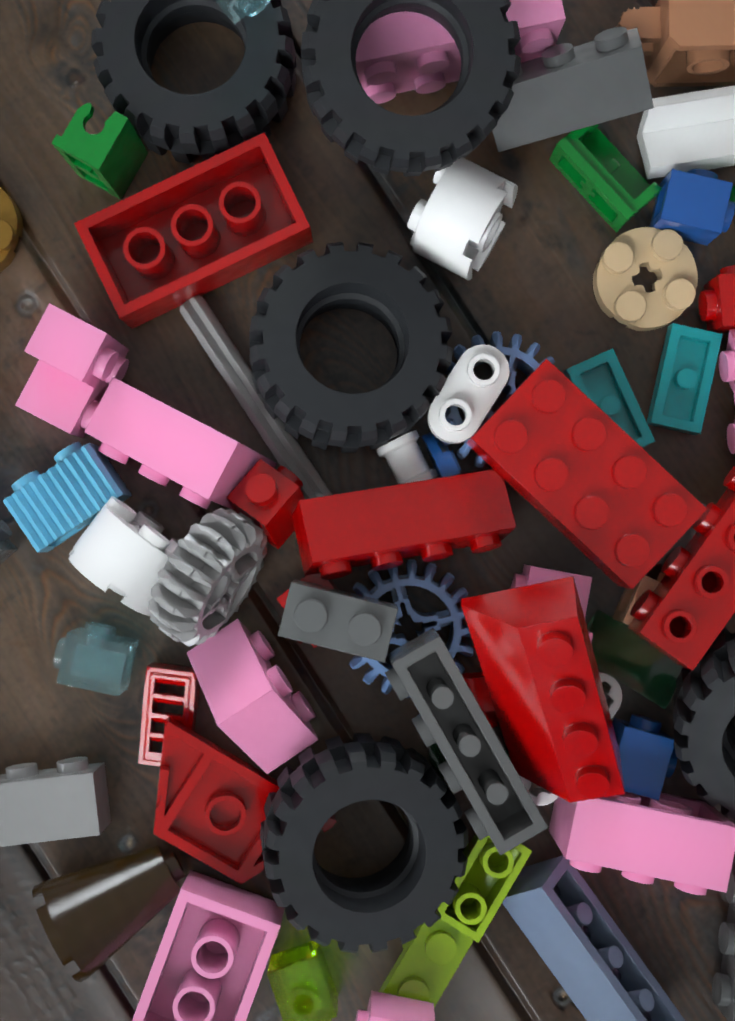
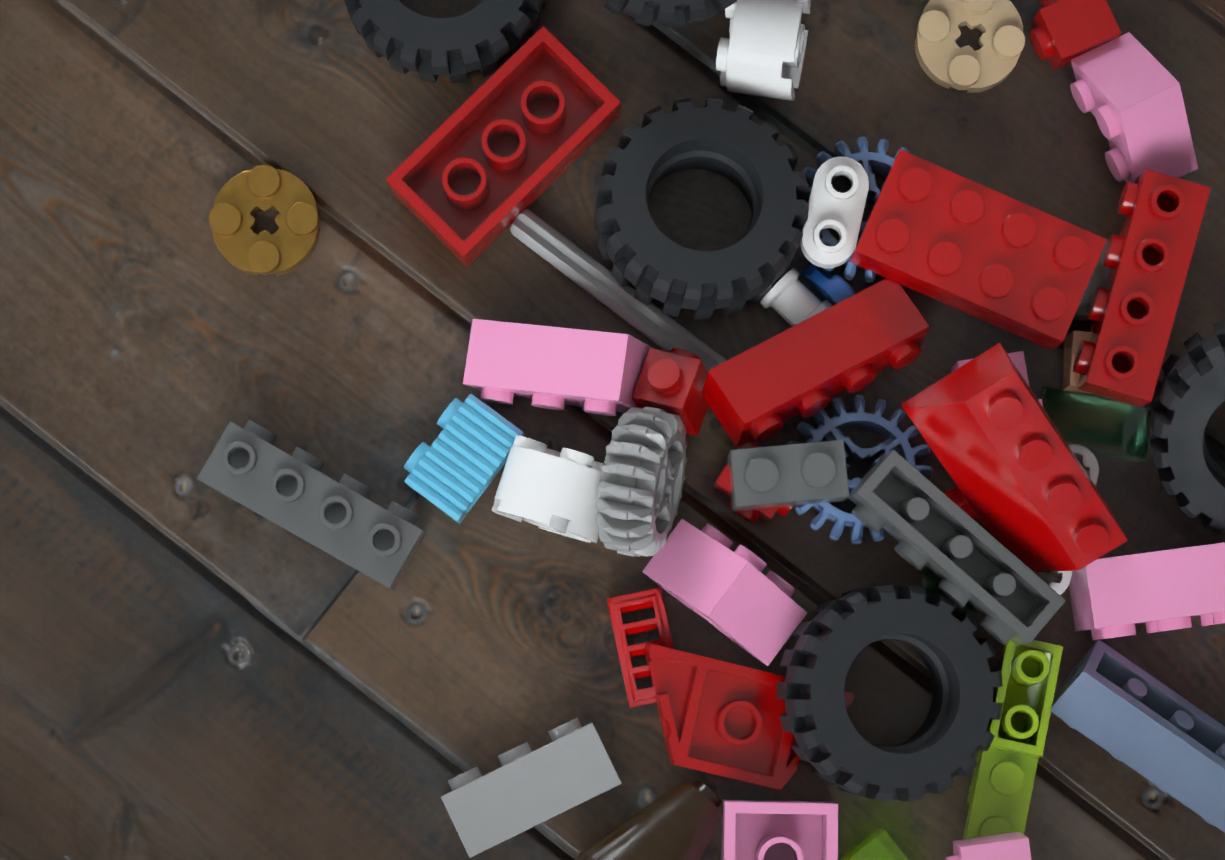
camera: 20 degrees left, 5 degrees down
(71, 370) = (428, 325): bright pink brick -> none
(95, 659) = (549, 611): clear light blue brick -> none
(104, 158) = (384, 107): green hinge -> none
(607, 386) = (970, 156): teal plate -> none
(645, 755) = (1142, 514): blue brick -> none
(684, 379) = (1044, 124): teal plate -> none

